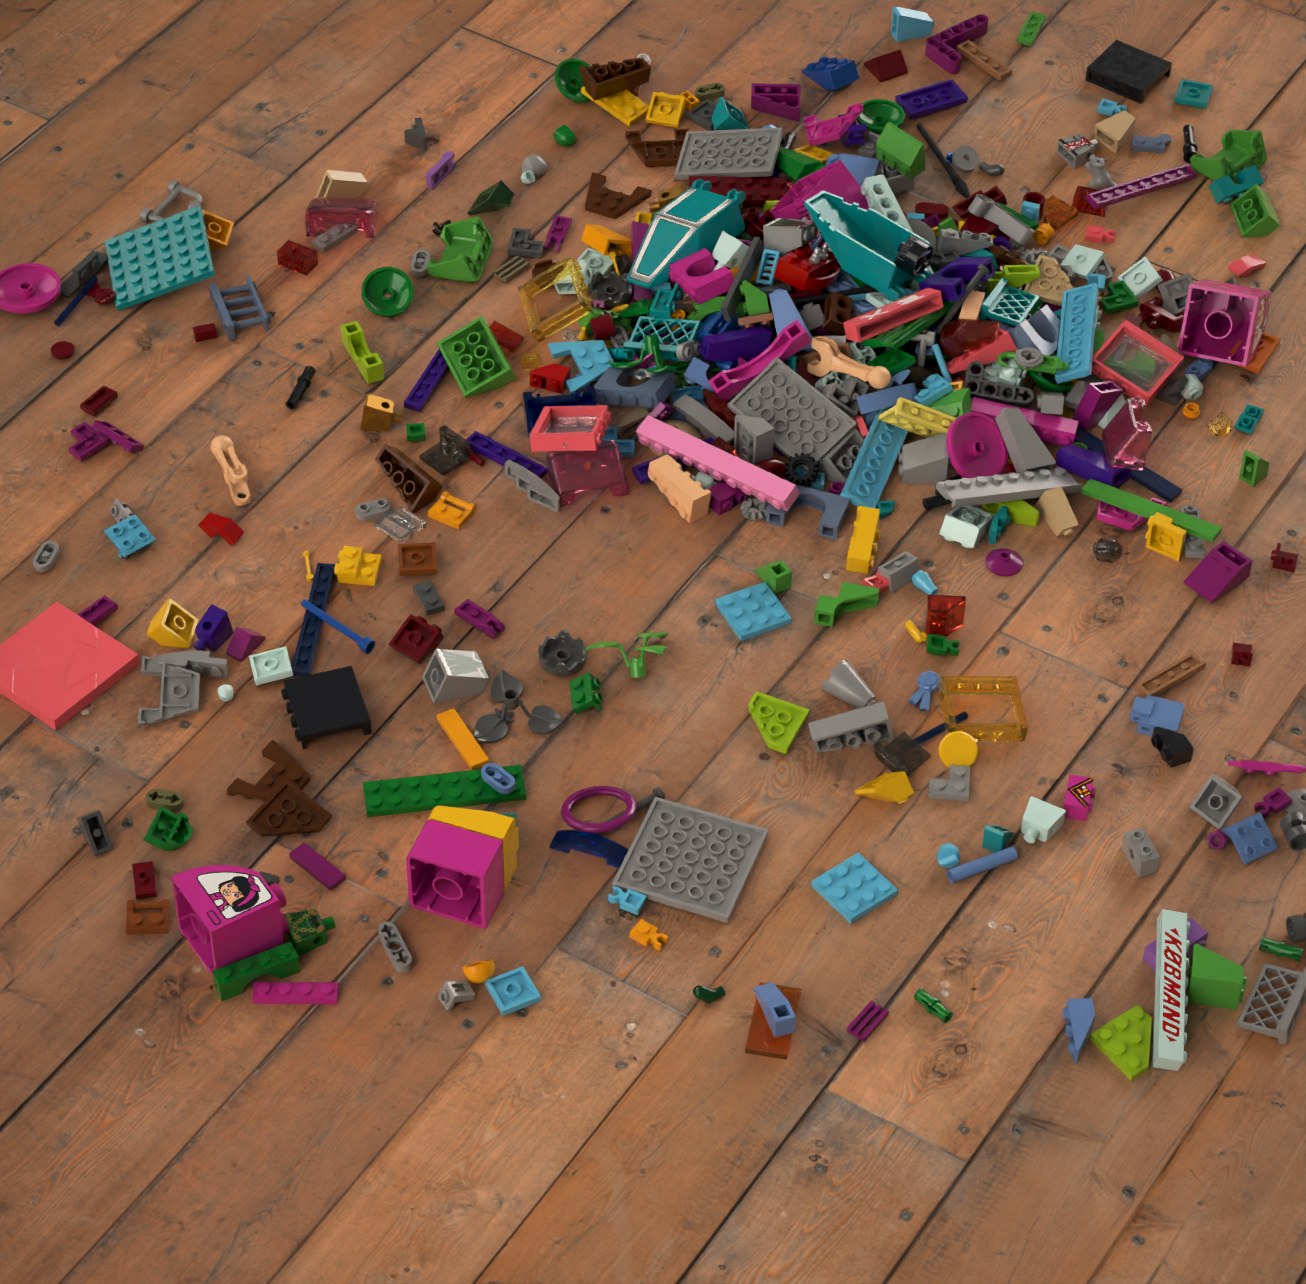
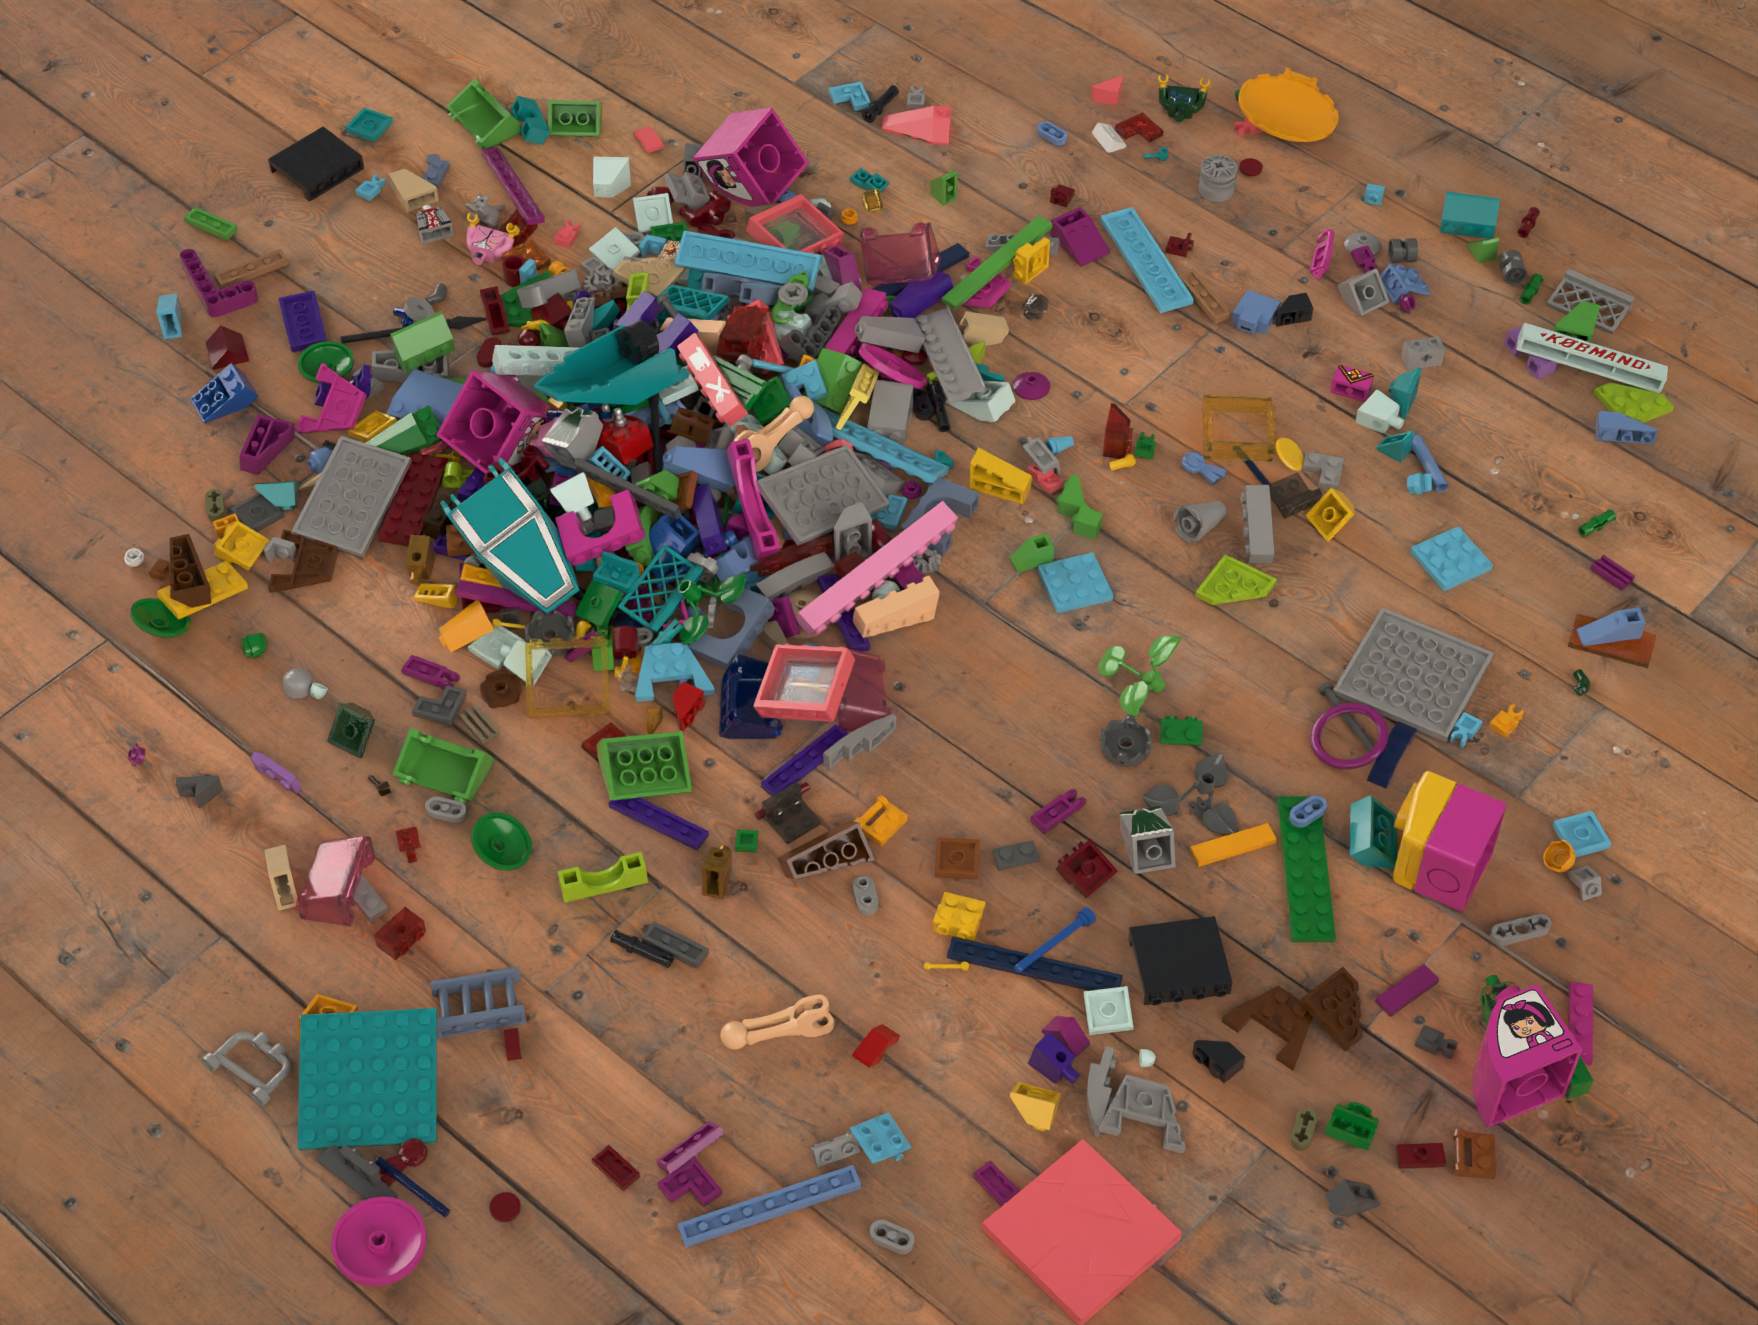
camera: 80 degrees left, 5 degrees up
(70, 486) = (769, 1206): none -> medium blue plate
(226, 739) = (1219, 1057): none -> black slope
(306, 405) = (675, 944): none -> dark grey plate
(388, 250) = (408, 841): none -> clear red plate
(400, 524) = (897, 869): clear slope -> none
(445, 98) = (136, 755): none -> magenta plate
(609, 202) = (382, 624): reddish brown wing -> none
(666, 128) = (281, 548): none -> light grey bracket
(801, 460) = (890, 513): black tyre -> none
(1064, 183) = (488, 243): none -> bright pink torso
(1069, 838) = (1405, 390): none -> teal slope
(1175, 243) = (610, 176): none -> light aqua slope
(1189, 147) = (456, 143): black pin -> none
(1209, 628) = (1146, 260): none -> medium azure plate

